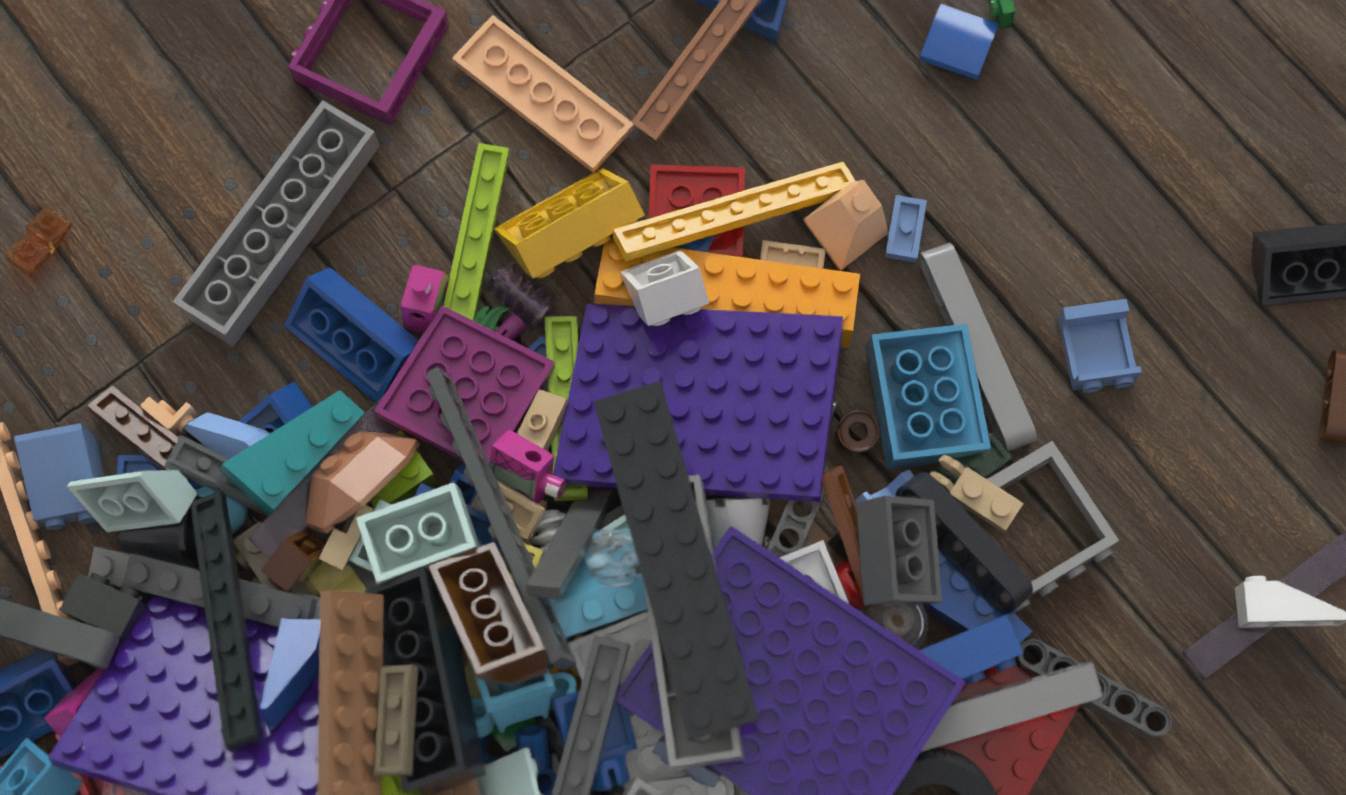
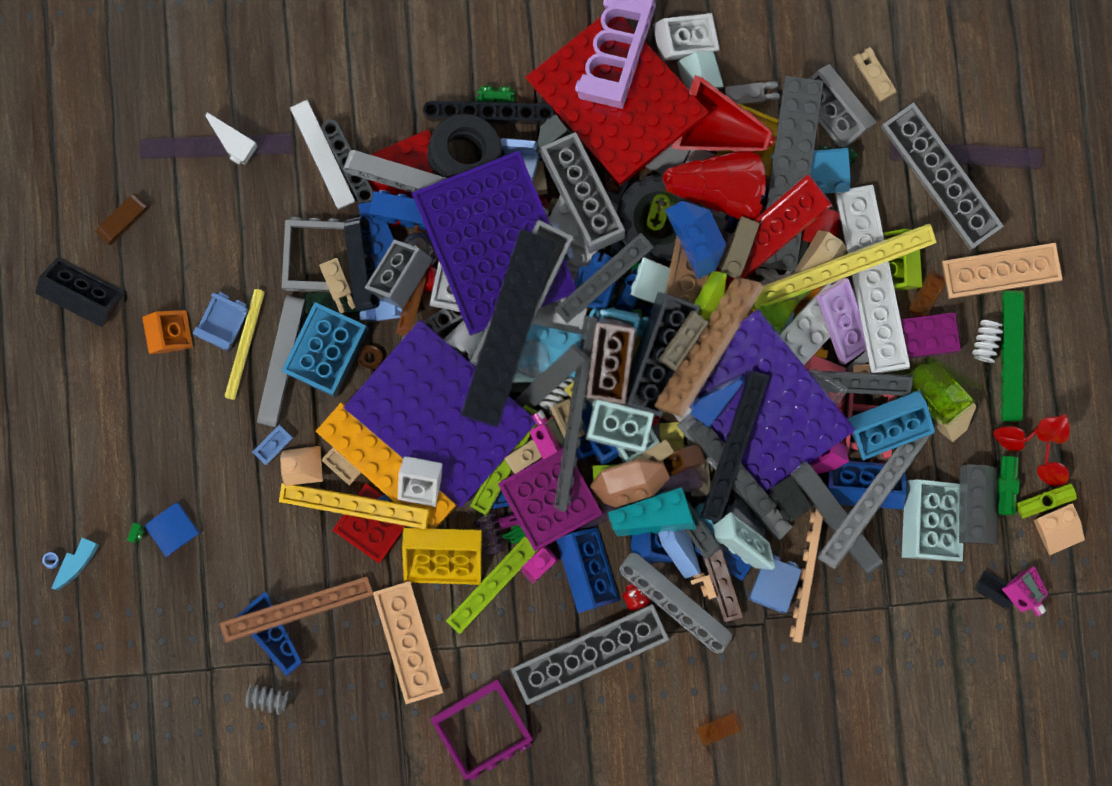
camera: 145 degrees left, 10 degrees up
(195, 361) = (675, 603): none -> light grey beam
(259, 339) = (635, 599): none -> red head
(1045, 339) = (244, 344): none -> light yellow axle
(1161, 285) = (167, 331): none -> orange slope
(1184, 705) = (322, 154): none -> white tile

